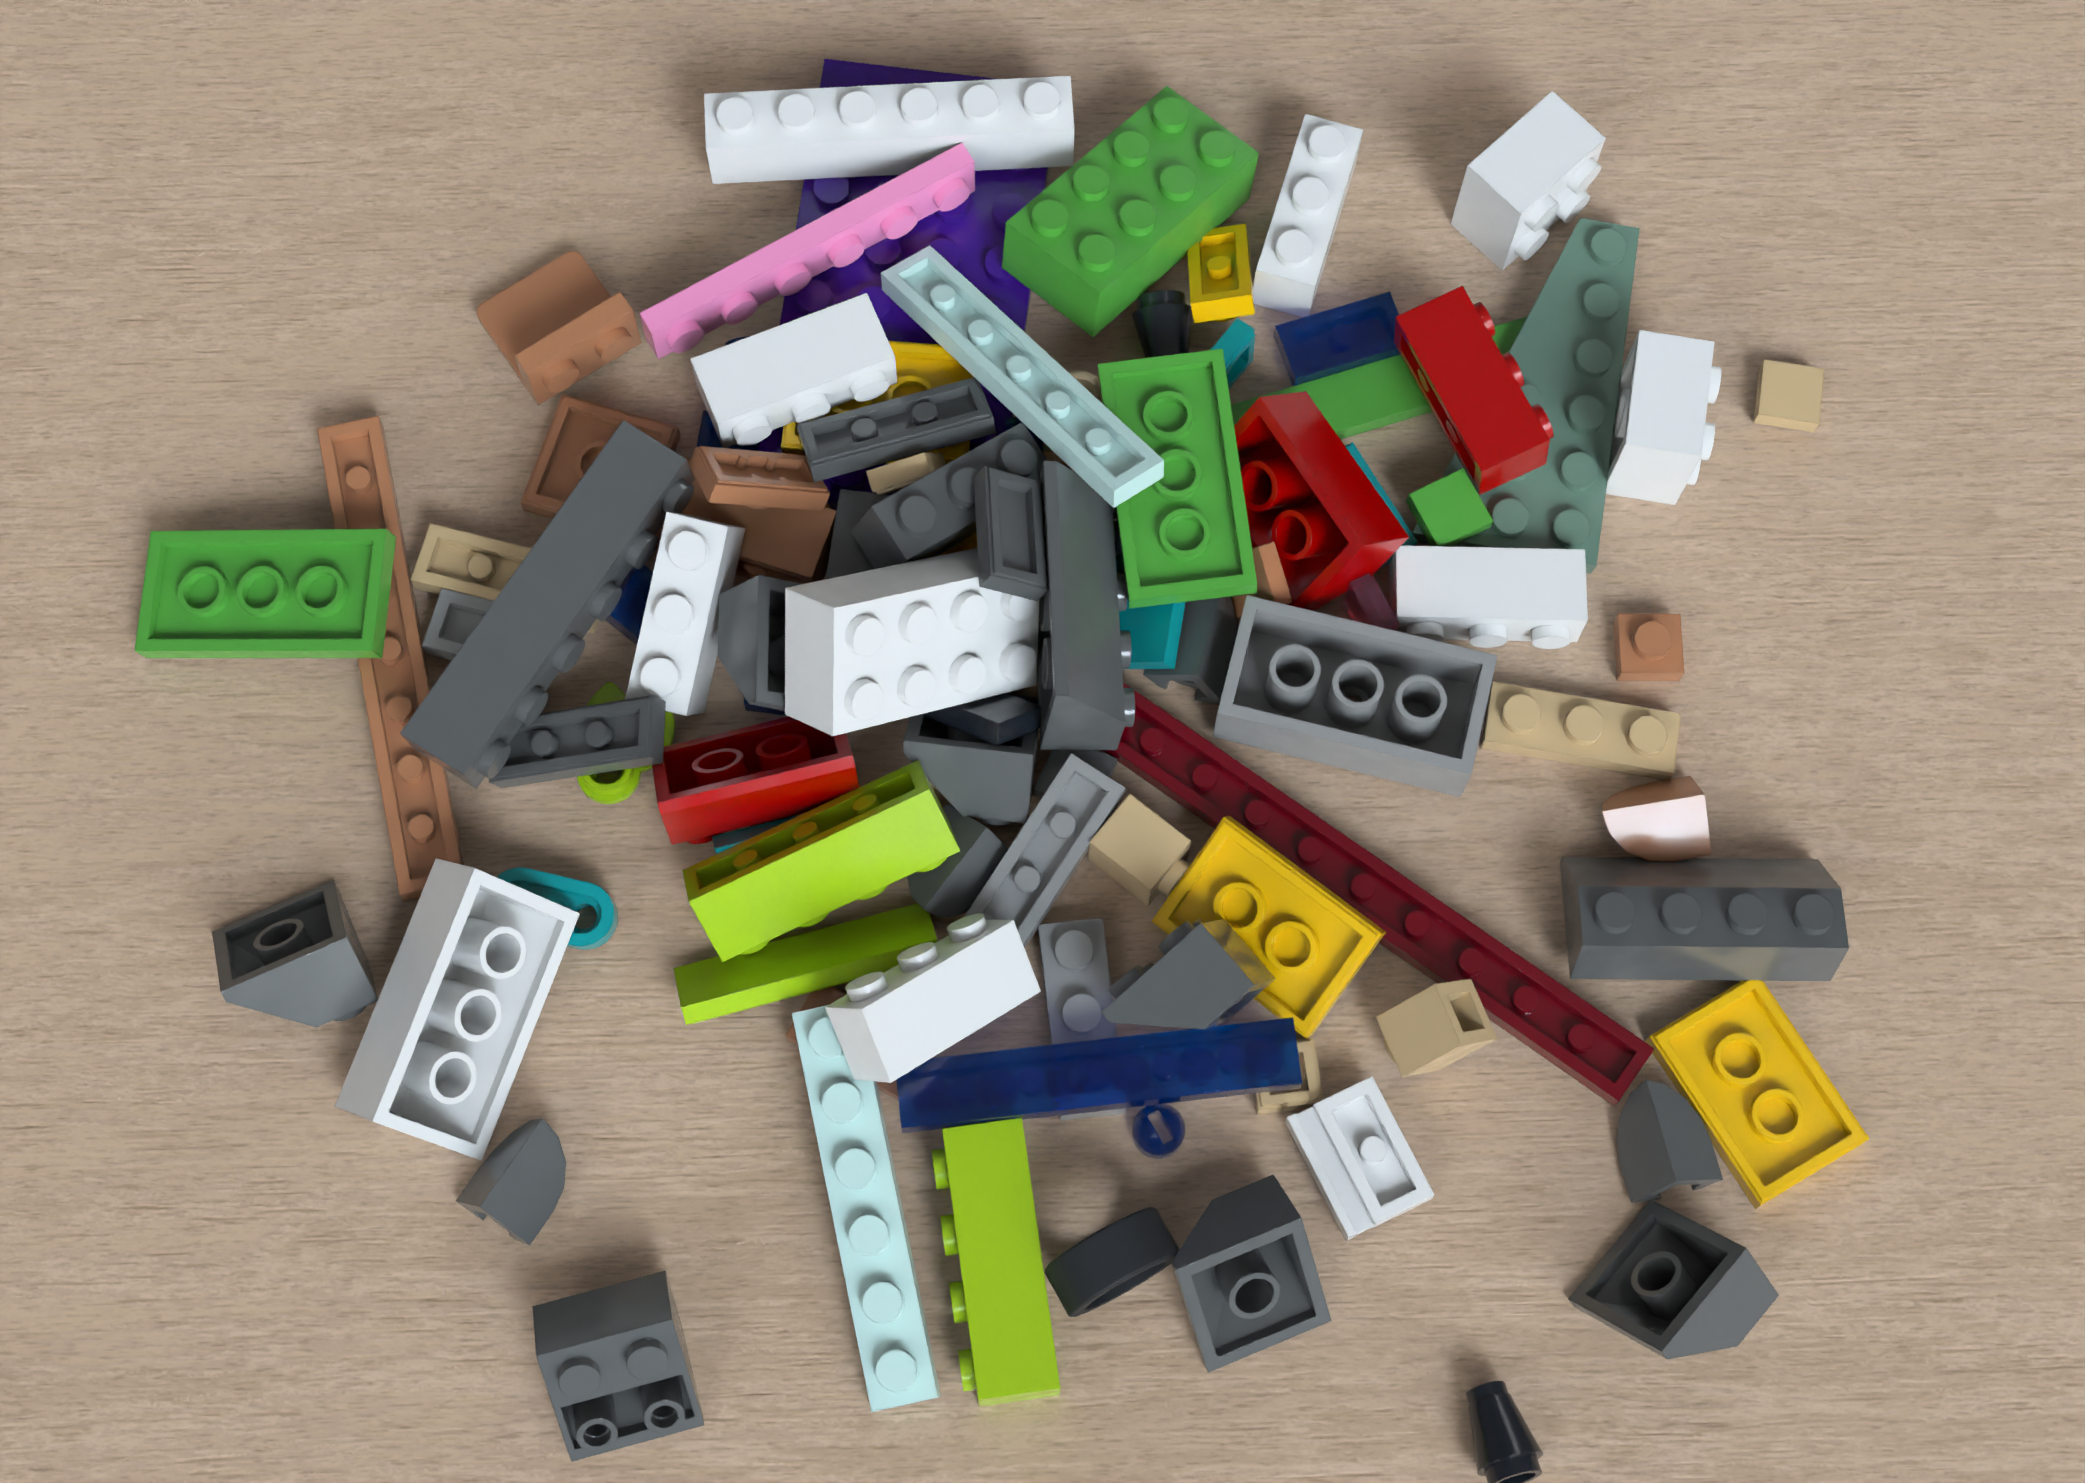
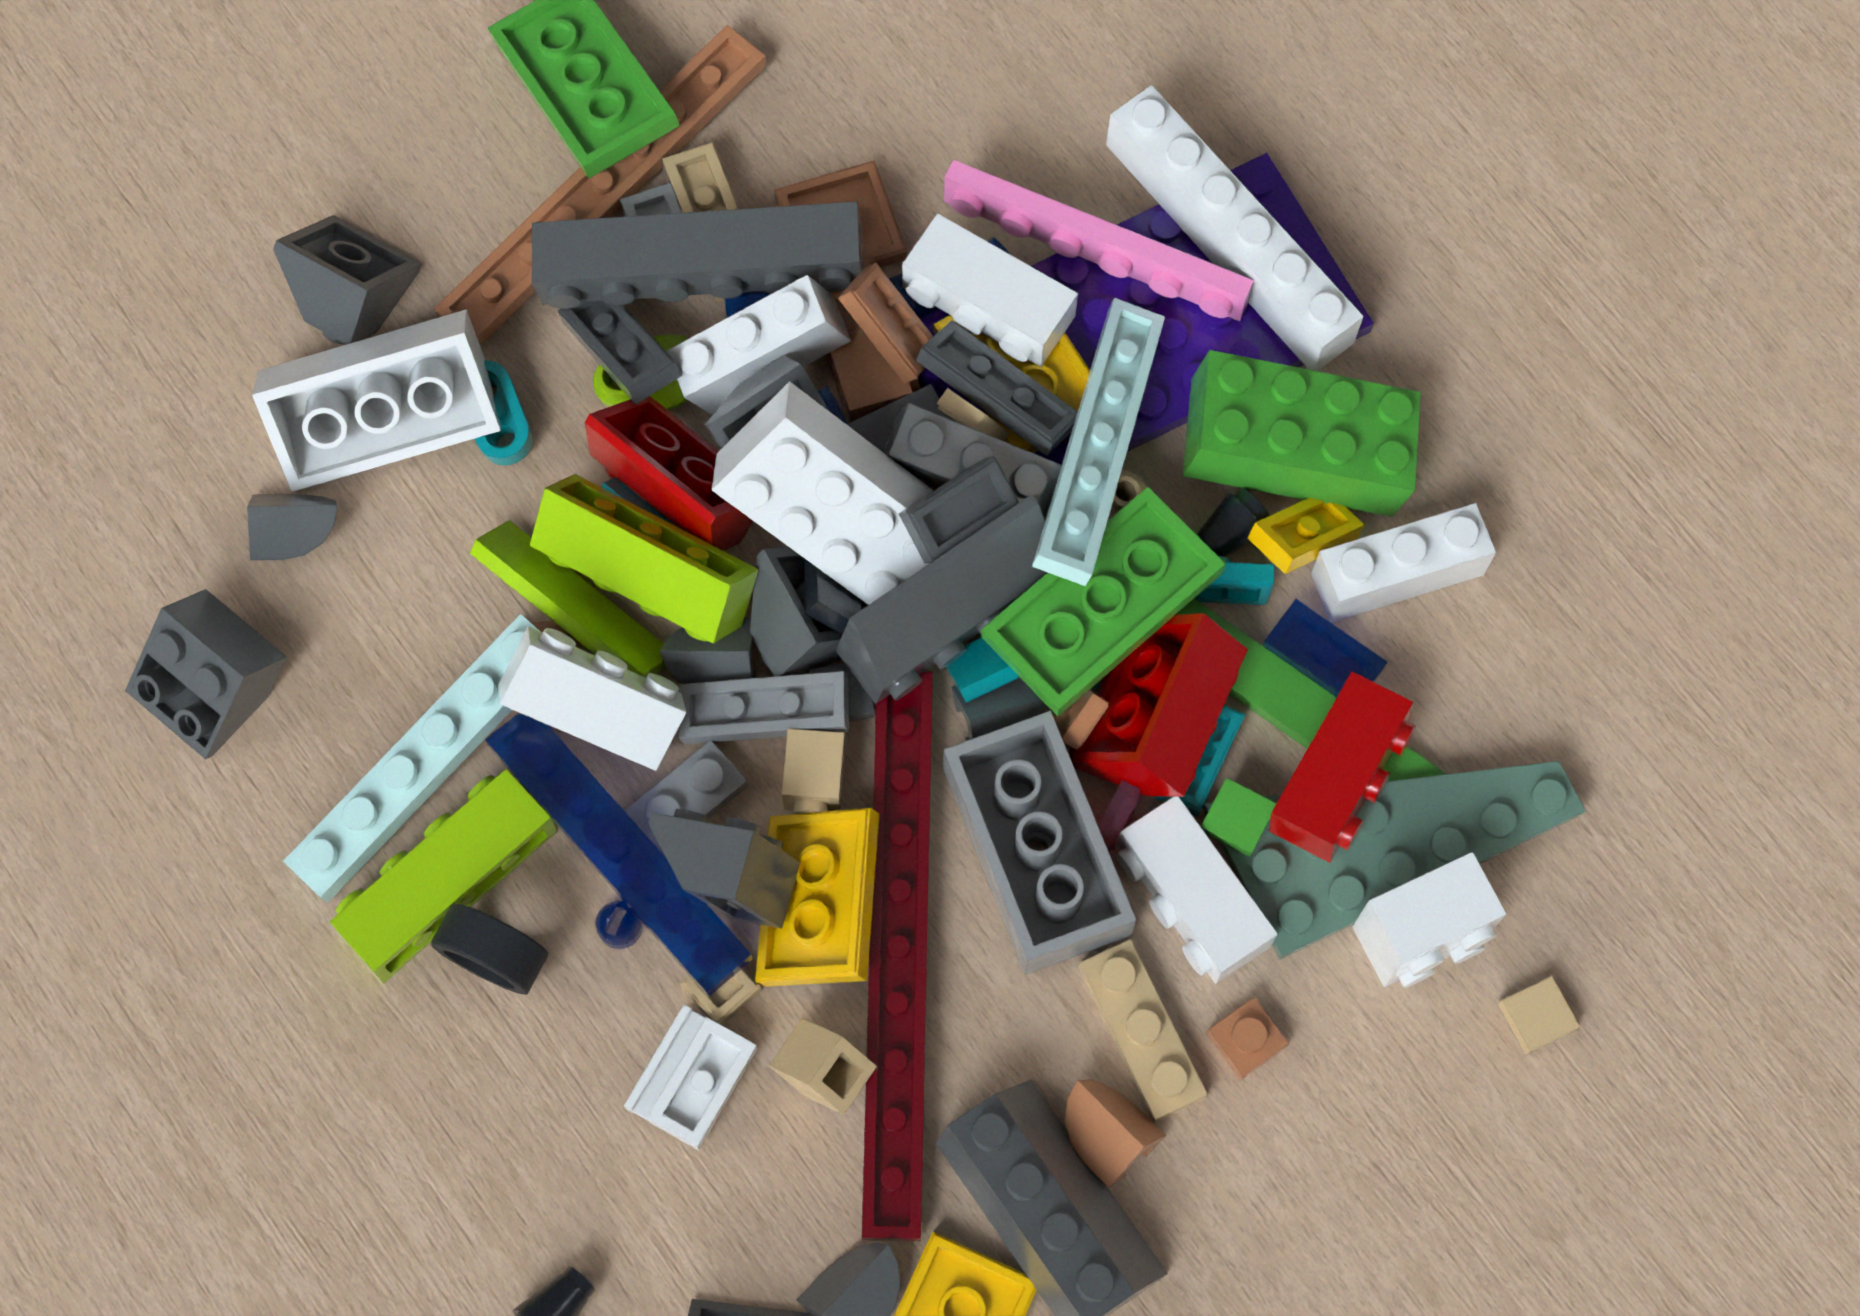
camera: 55 degrees right, 0 degrees up
(559, 325) = (920, 121): nougat bracket -> none
(1249, 1275) = (548, 1051): dark grey slope -> none
(1528, 182) = (1552, 700): white brick -> none

